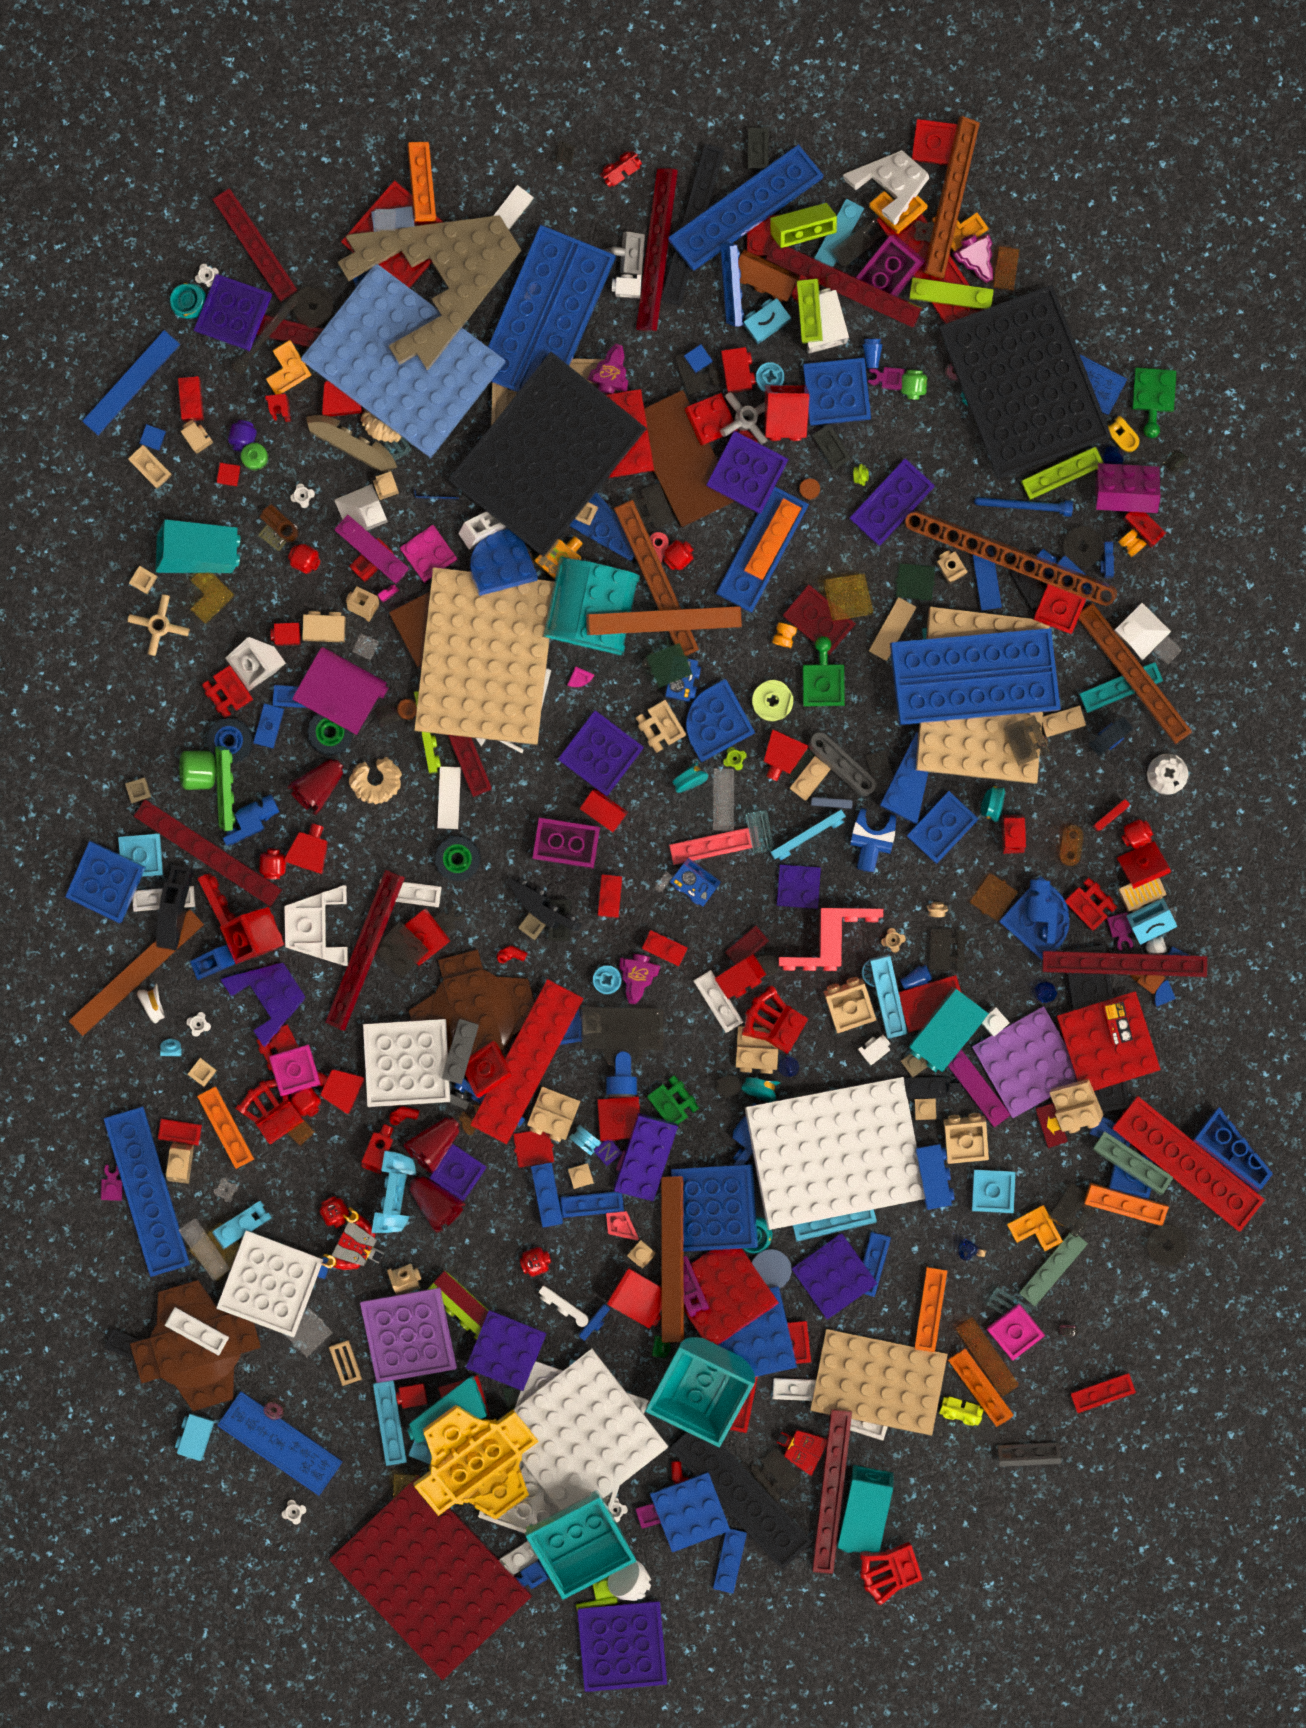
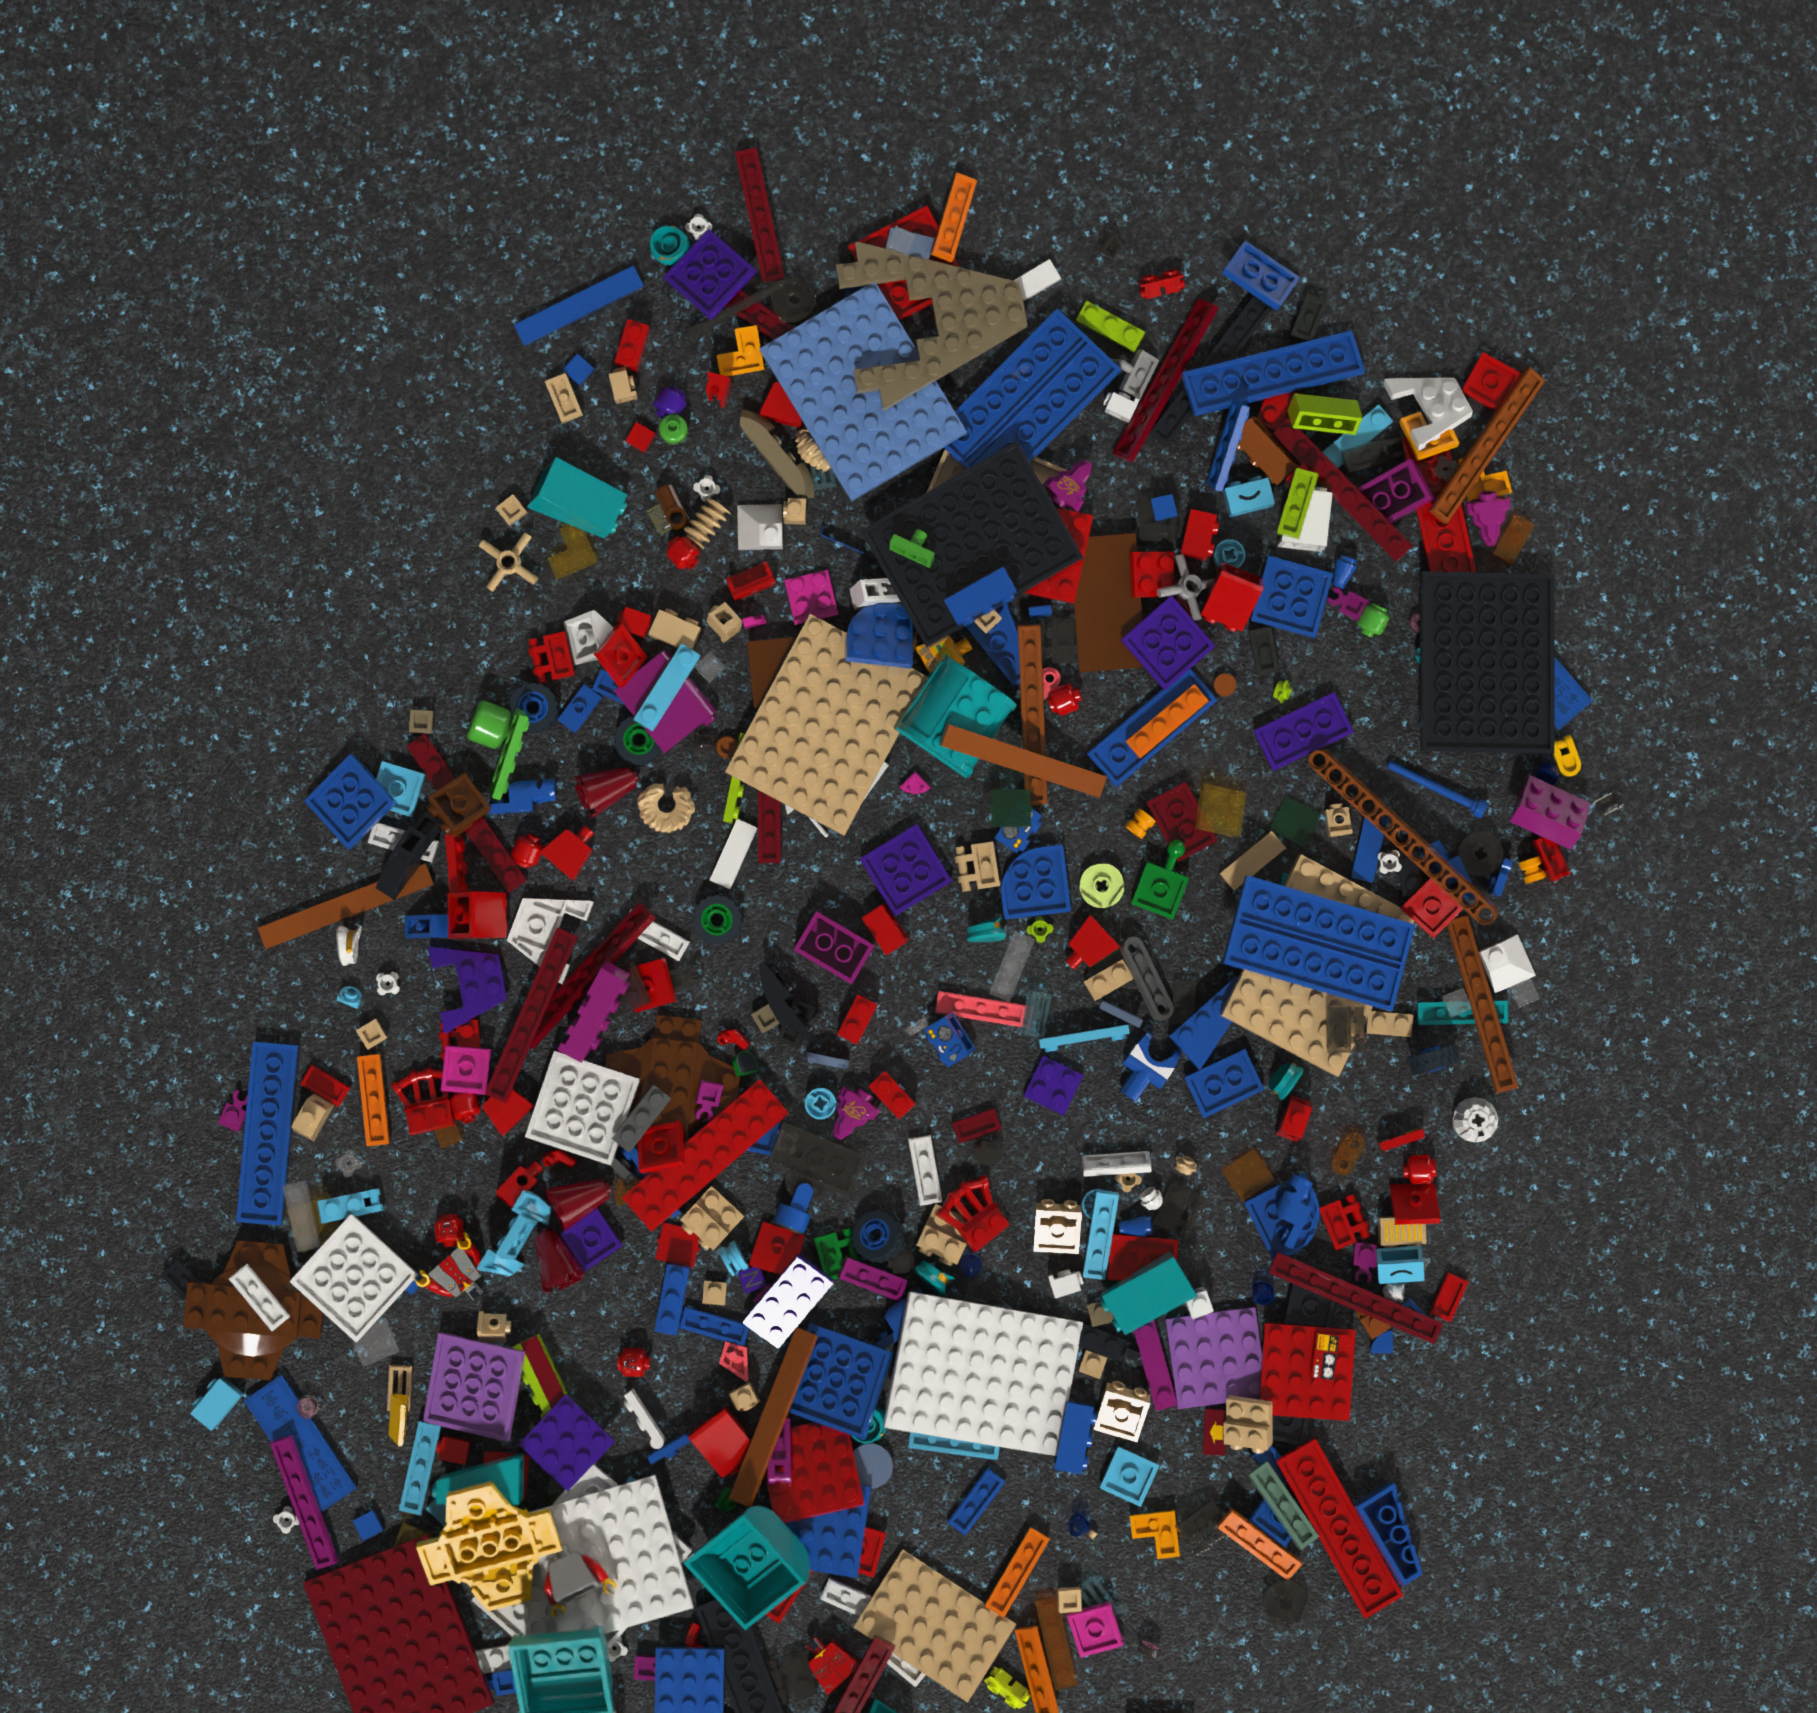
camera: 20 degrees right, 0 degrees up
(198, 848) = (457, 805): none -> reddish brown plate
(286, 666) = (620, 655): none -> red plate
(303, 1490) = (304, 1501): none -> magenta tile
(313, 525) = (706, 522): none -> tan piece
(332, 1001) = (531, 1015): none -> dark red plate
(336, 678) = (667, 687): none -> medium azure plate
(354, 1388) = (398, 1418): none -> yellow slope
(364, 1489) = (368, 1525): none -> blue tile
(371, 549) = (755, 570): magenta plate -> none
(385, 977) = (595, 1011): none -> magenta wedge
(499, 477) = (913, 548): none -> bright green tile
(509, 1010) = (707, 1095): none -> magenta plate
(529, 971) = (744, 1063): none -> black tile
(556, 1460) = (573, 1577): none -> light grey torso
(573, 496) = (981, 597): none -> blue brick
(591, 222) = (1110, 326): none -> lime plate
(598, 941) = (827, 1060): none -> sand blue tile
(627, 488) = (1039, 611): none -> blue tile
(690, 1067) = (887, 1245): none -> black wheel
(702, 128) = (1261, 275): none -> blue plate
(710, 1110) = (872, 1278): none -> magenta plate
(740, 977) = (957, 1155): red brick -> none
(830, 938) = (1064, 1153): coral bracket -> none
(834, 1276) = (932, 1498): dark purple plate -> none
(878, 931) = (1116, 1163): none -> white tile
(919, 949) = (1151, 1198): none -> white plate
(951, 294) = (1447, 543): lime plate -> none
(983, 1315) = (1069, 1599): none -> tan plate
(1010, 577) = (1385, 866): none -> white plate
(1052, 1268) = (1158, 1579): sand green plate -> none
(1062, 473) = (1488, 770): lime plate -> none
(1112, 680) = (1456, 1002): none -> clear plate
(1154, 392) = (1614, 725): green plate -> none
(1204, 932) = (1448, 1297): none -> red tile

